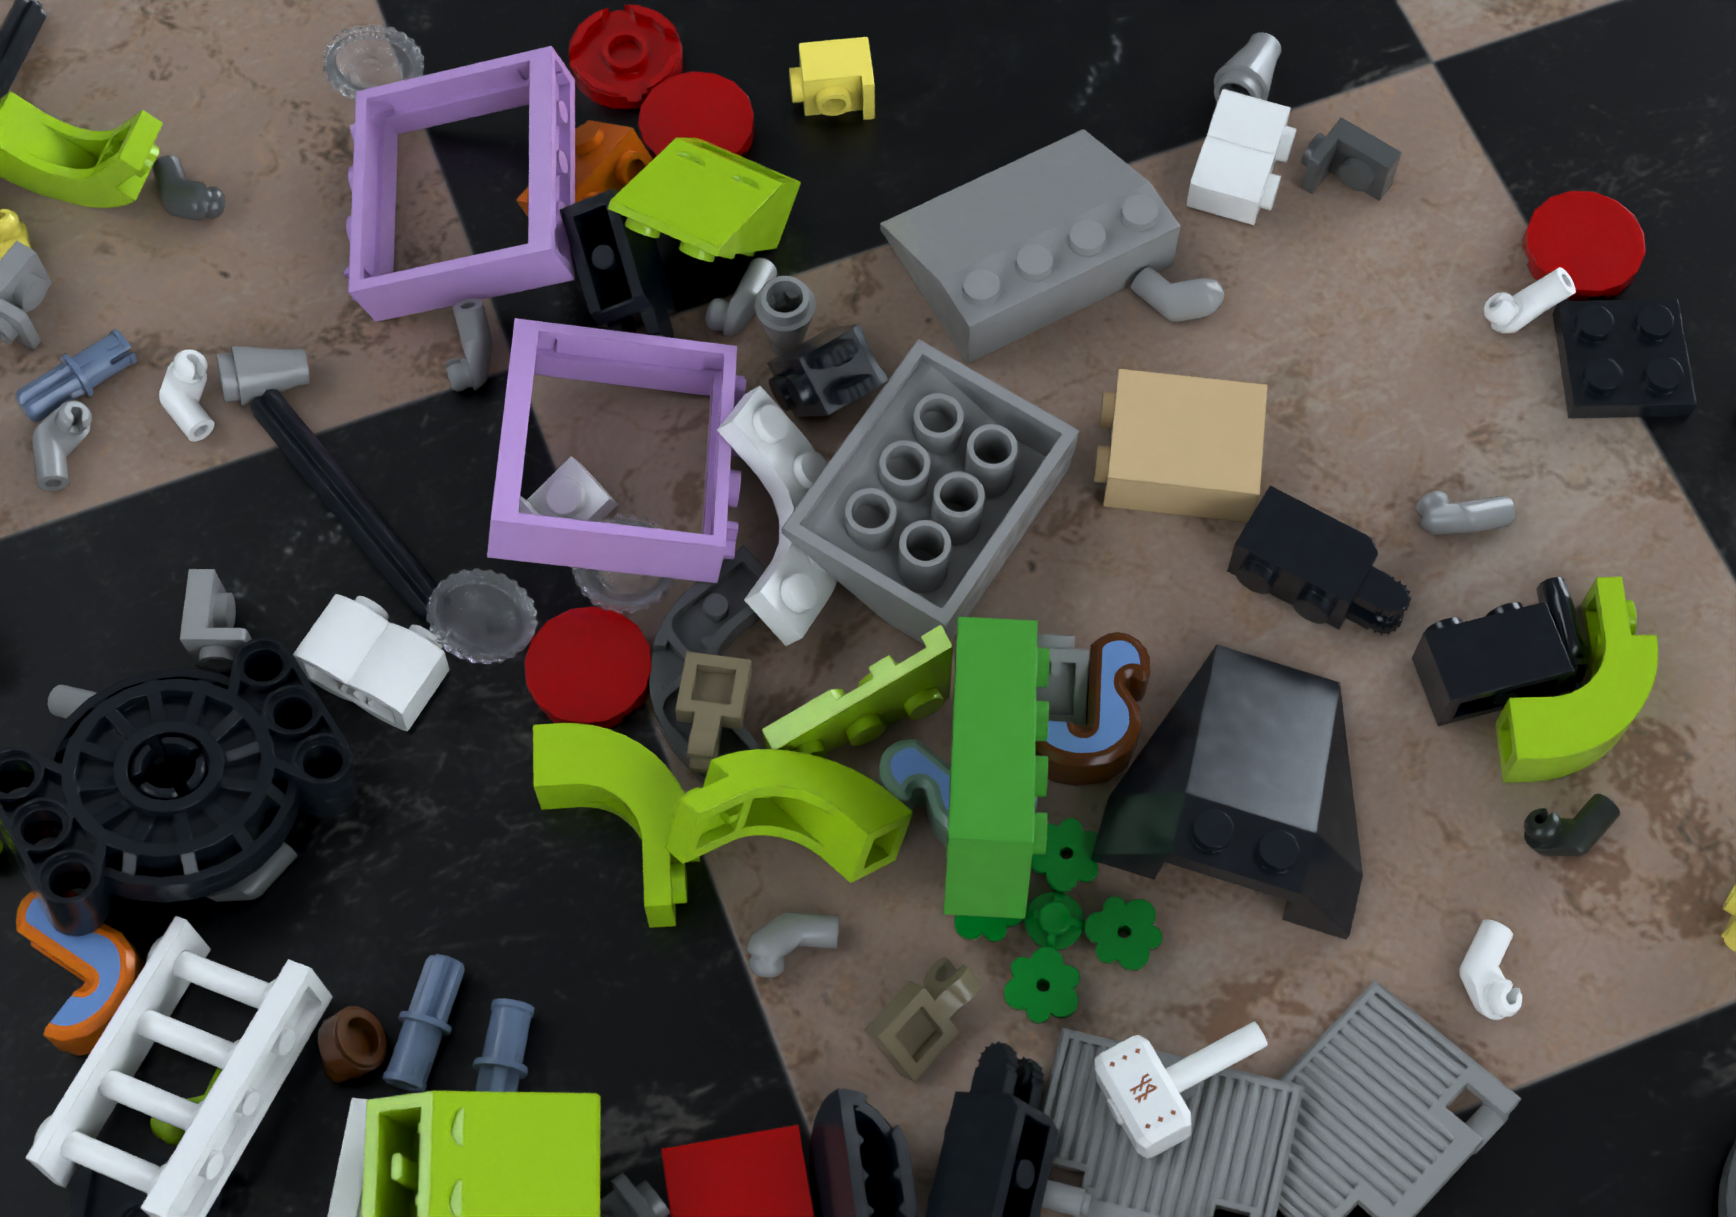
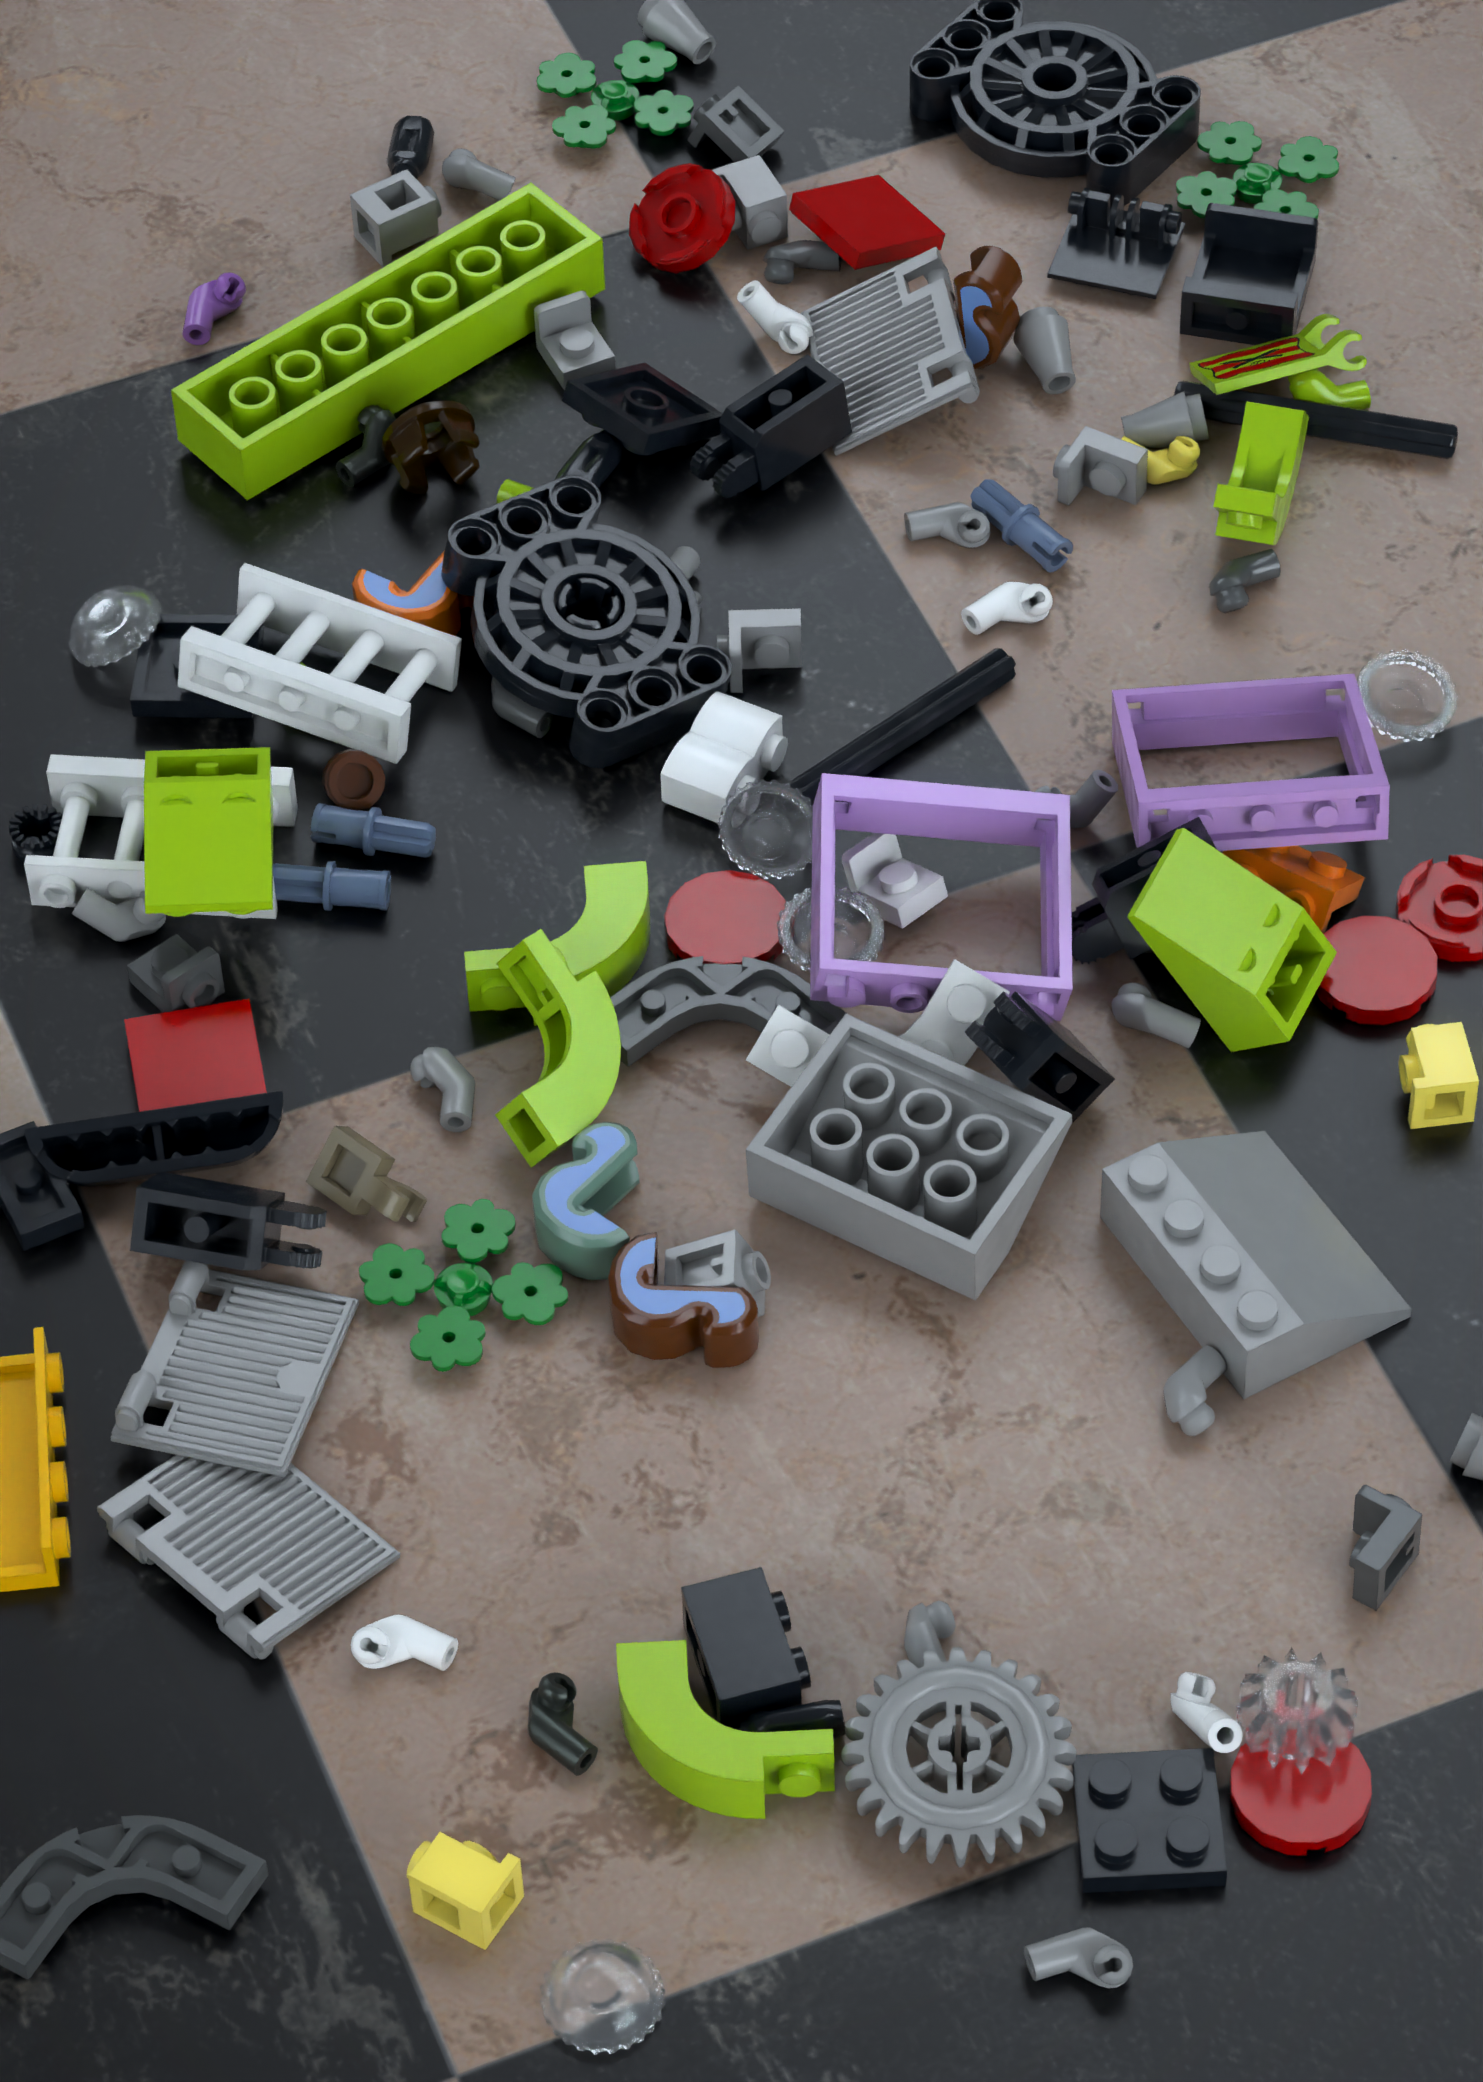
camera: 90 degrees right, 15 degrees down
(253, 370) = (1033, 646): light grey cone -> none
(711, 697) = (674, 989): dark tan plate -> none
(785, 312) = (1118, 1029): light grey cone -> none
(882, 698) = (677, 1118): lime wing -> none
(996, 767) = (587, 1172): bright green wedge -> none
(1147, 1095) = (282, 1336): white piece -> none
(1182, 445) = (993, 1385): tan brick -> none
(1239, 156) = (1377, 1440): white brick -> none
(1247, 790) = (593, 1442): black wedge -> none
(1316, 566) = (855, 1496): black hinge -> none
(1542, 224) = (1296, 1710): none -> clear gear
(1576, 501) = (942, 1811): none -> light grey gear

